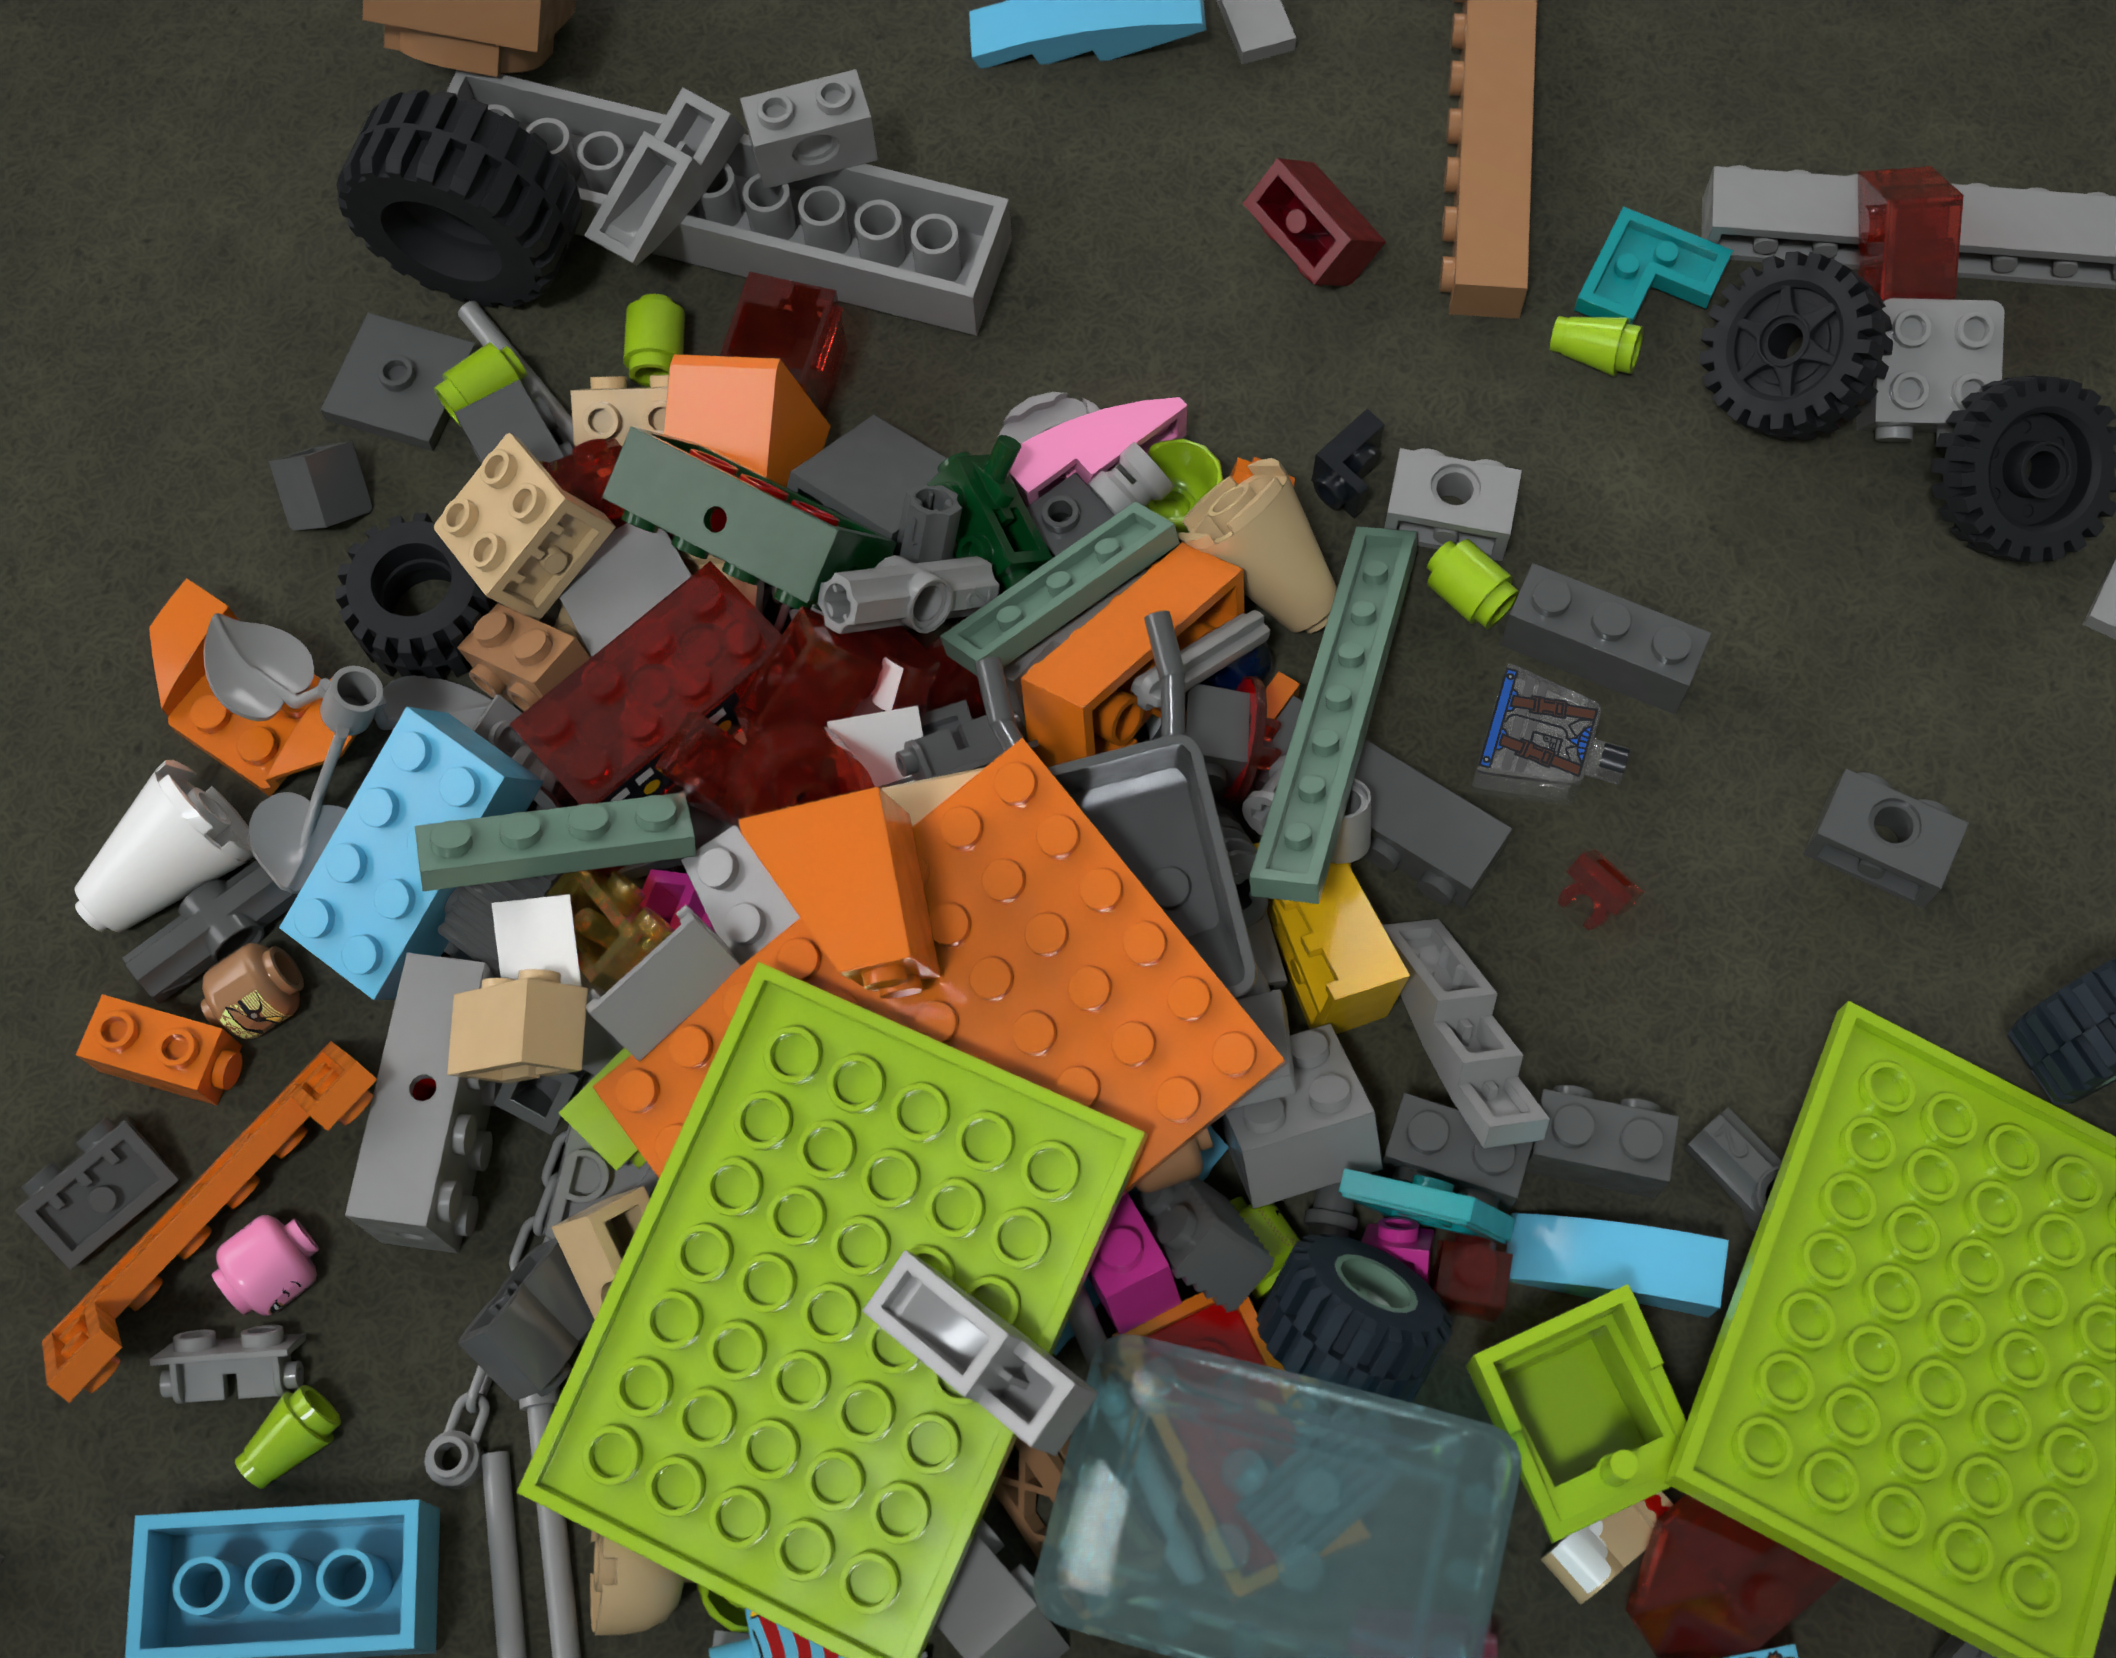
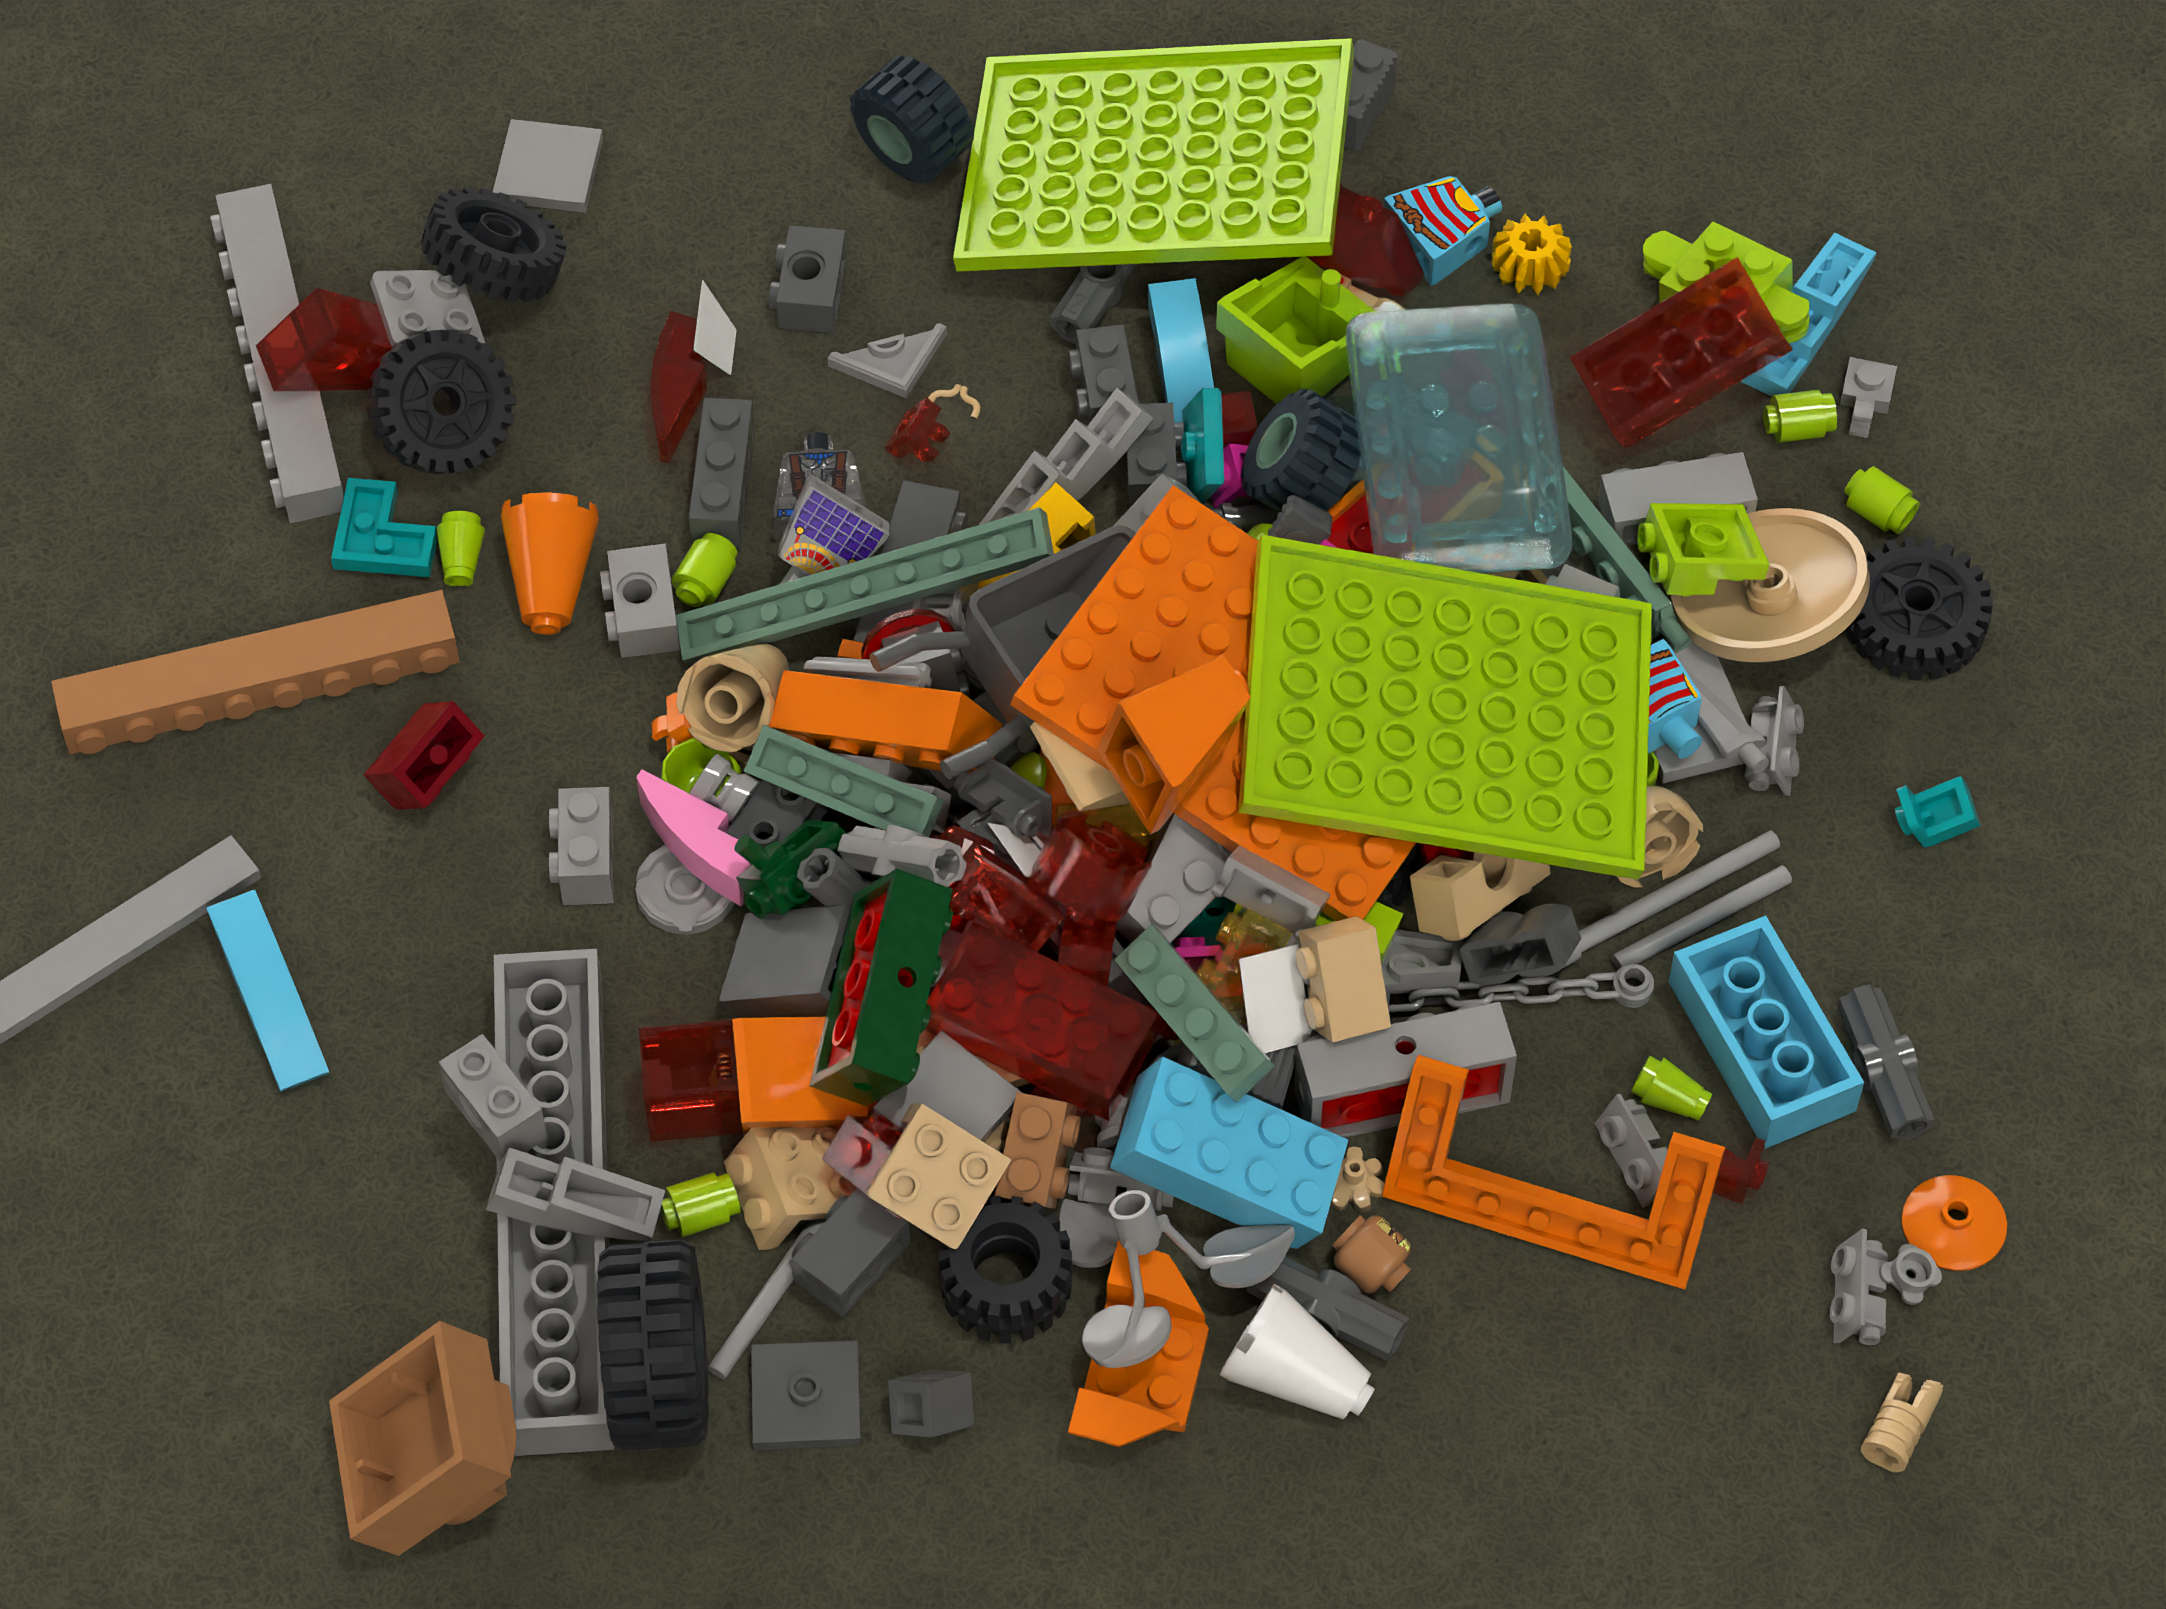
camera: 115 degrees left, 10 degrees down
(96, 1192) = (1562, 1299): dark grey bracket -> none
(145, 1446) = (1740, 1175): none -> clear red bracket
(161, 1050) = (1445, 1296): orange brick -> none
(266, 1265) = (1563, 1155): bright pink head -> none
(361, 1022) = (1357, 1182): none -> tan plant
(478, 377) = (796, 1308): lime brick -> none
(980, 1354) = (1441, 588): light grey slope -> none
(1135, 348) = (585, 845): none -> light grey brick
(1346, 461) = (630, 682): black bracket -> none
(1454, 715) = (828, 531): none -> torso
(1540, 414) = (548, 555): none -> orange cone
(1652, 975) = (963, 393): none -> tan piece
(1731, 906) = (893, 361): none -> light grey tile
(1764, 629) = (676, 383): none -> clear red slope
(1825, 690) = (714, 332): none -> white sticker

